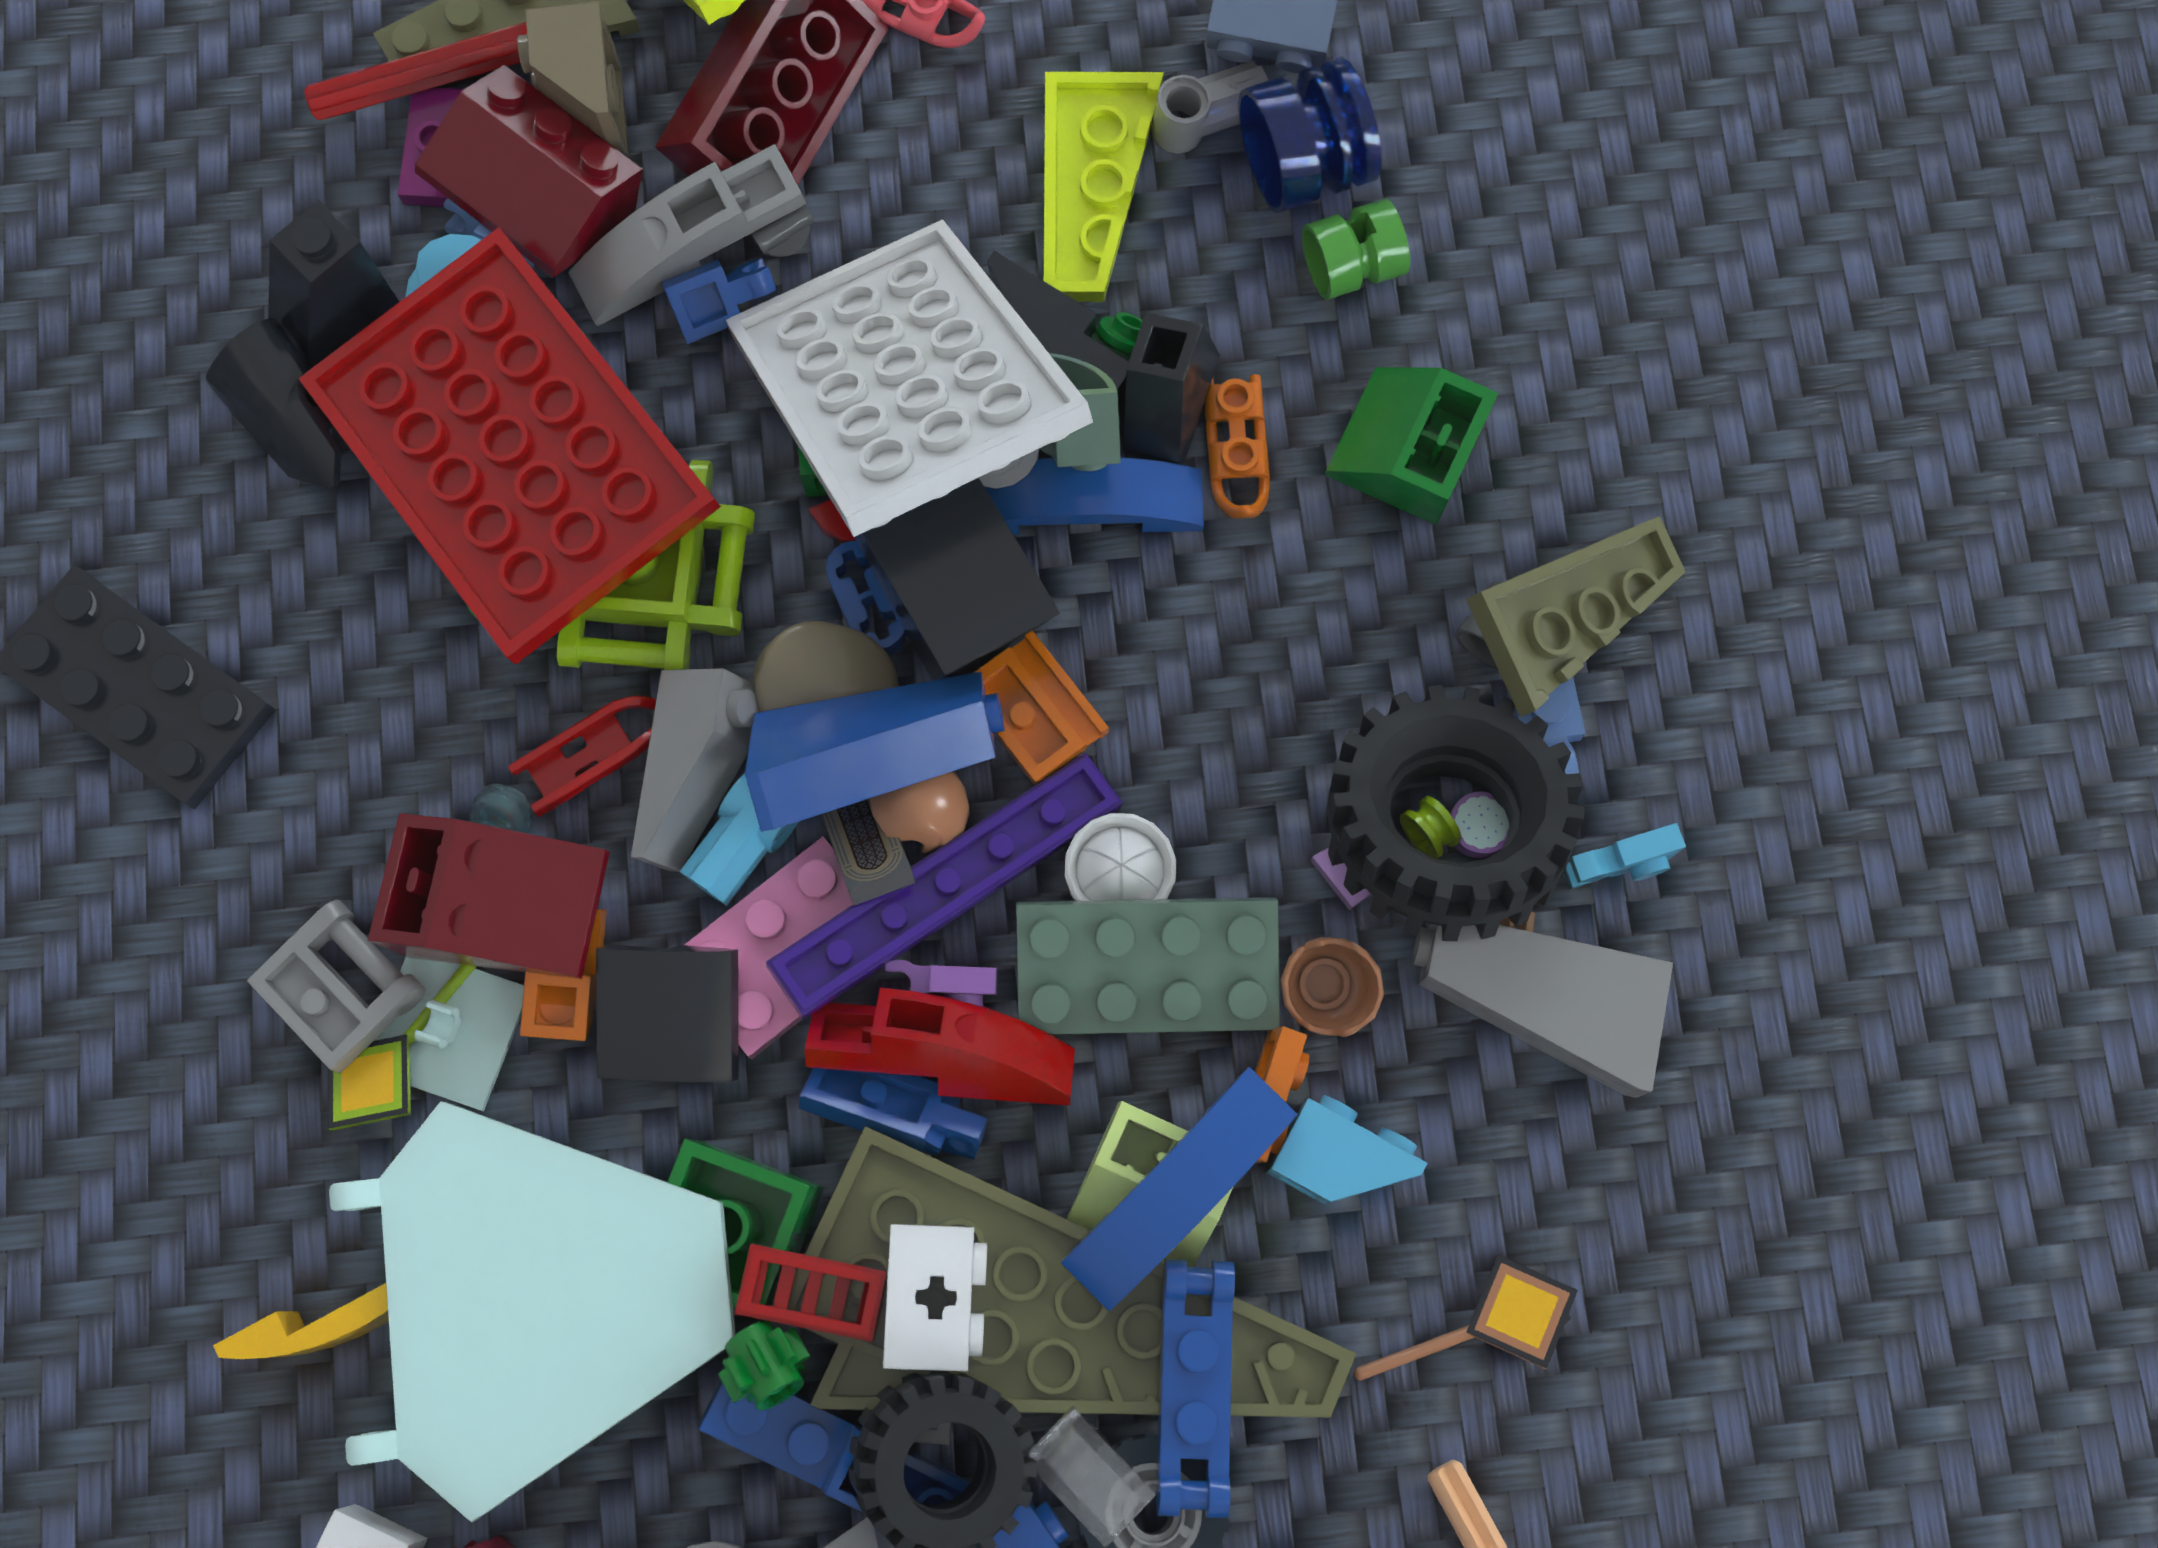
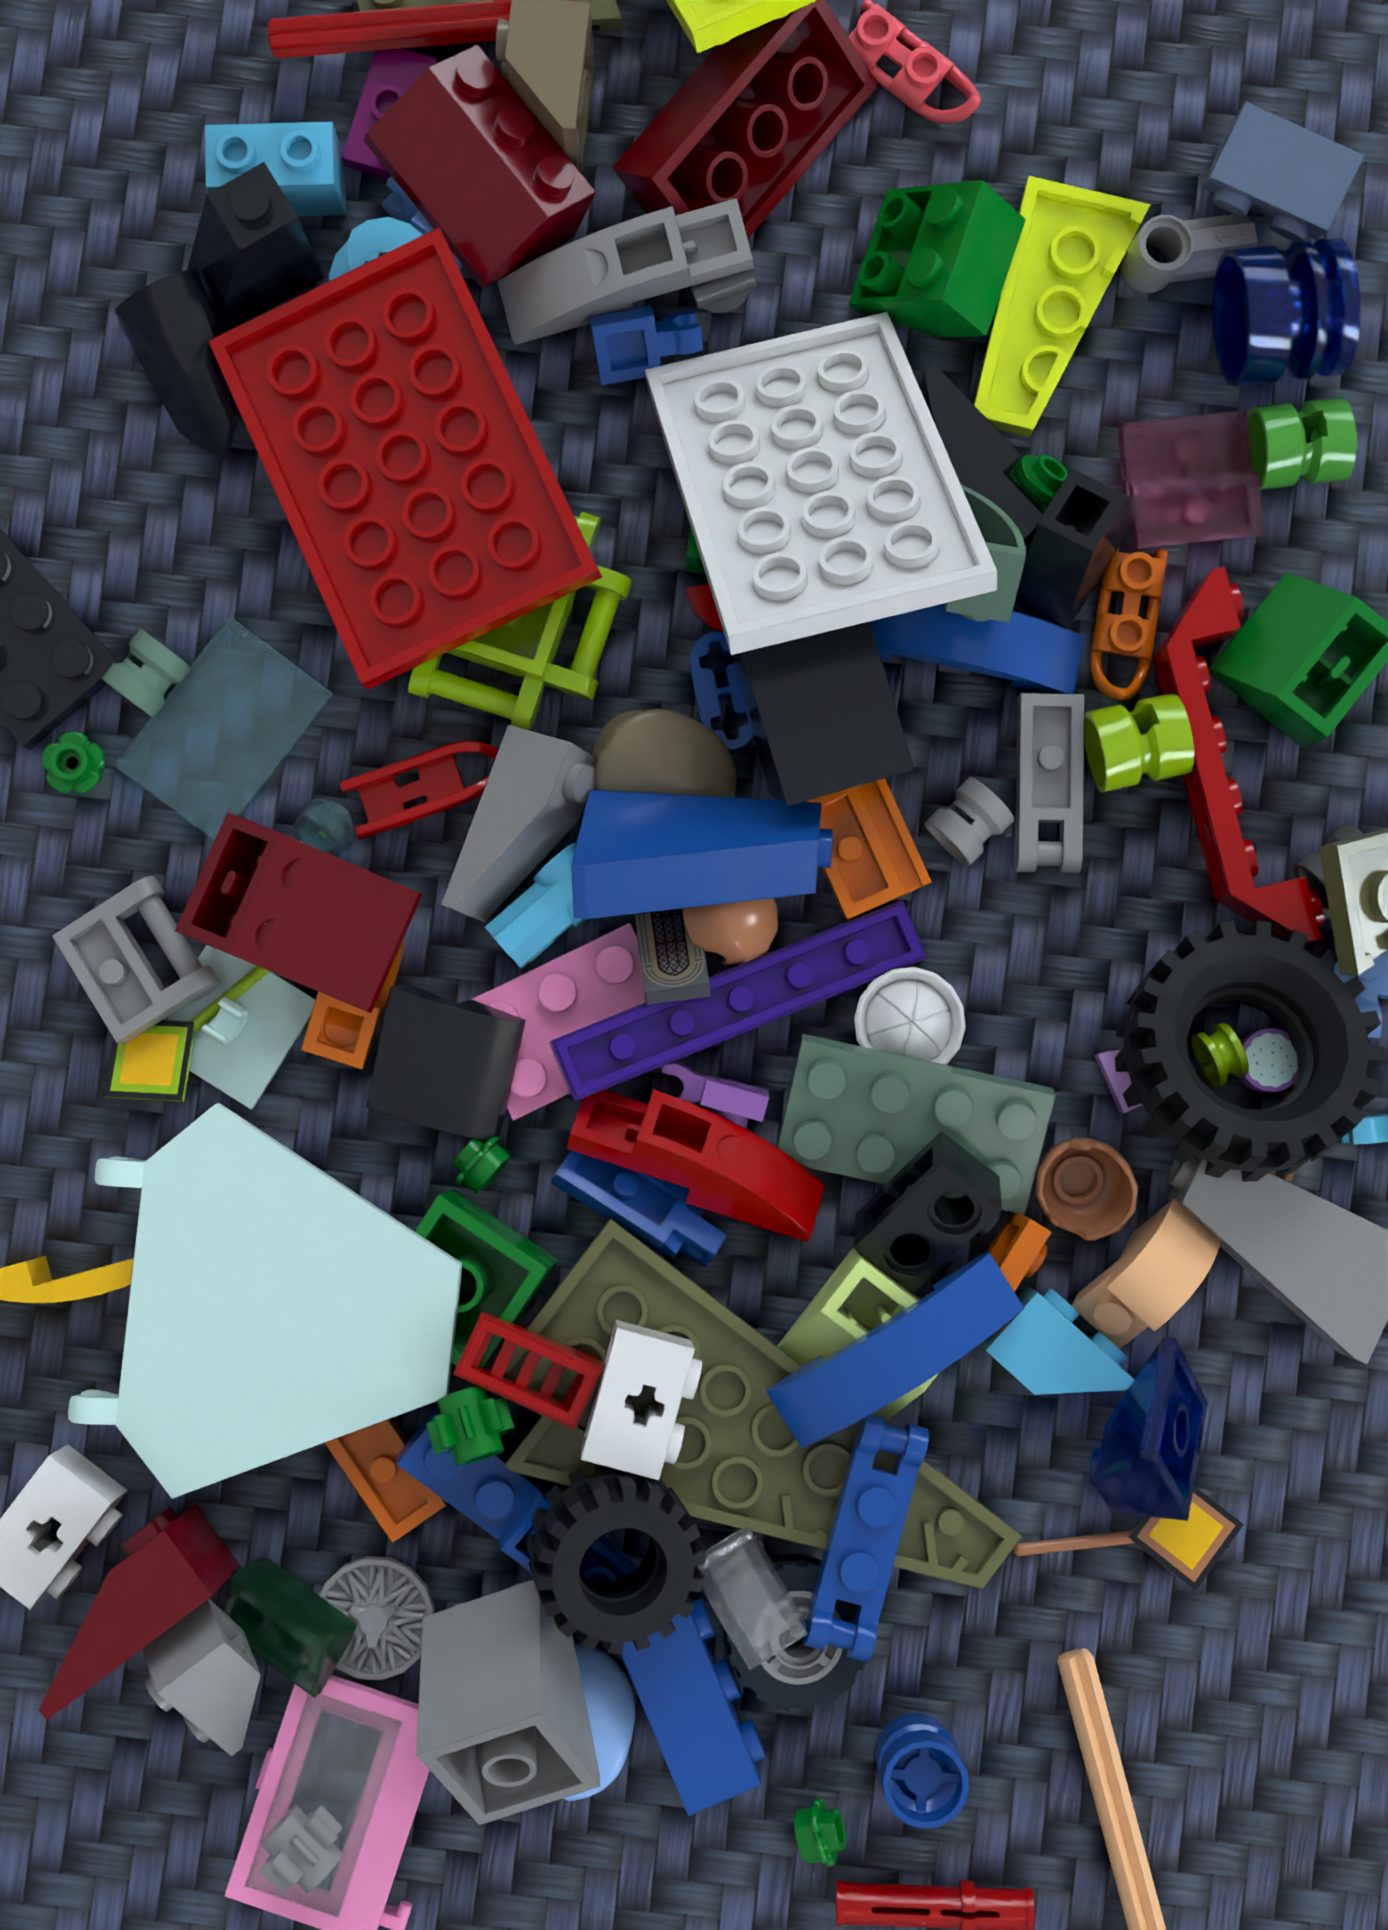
camera: 10 degrees right, 10 degrees up
(256, 811) = (89, 768): none -> green plate
(297, 705) = (147, 673): none -> sand green wheel
(358, 196) = (299, 156): none -> medium azure brick
(383, 743) = (224, 728): none -> clear light blue piece
(695, 1461) = (388, 1490): none -> orange plate
(724, 1107) = (480, 1163): none -> green plate
(980, 161) = (939, 258): none -> green slope
(1132, 662) = (969, 821): none -> light grey wheel
(1166, 1041) = (916, 1205): none -> black brick
(1200, 608) = (1049, 780): none -> light grey plate
(1263, 305) = (1190, 479): none -> clear pink slope
(1278, 550) = (1147, 741): none -> lime wheel
(1361, 588) = (1215, 800): none -> red slope
(1416, 1059) = (1151, 1278): none -> light nougat brick
(1462, 1219) = (1153, 1440): none -> clear blue slope

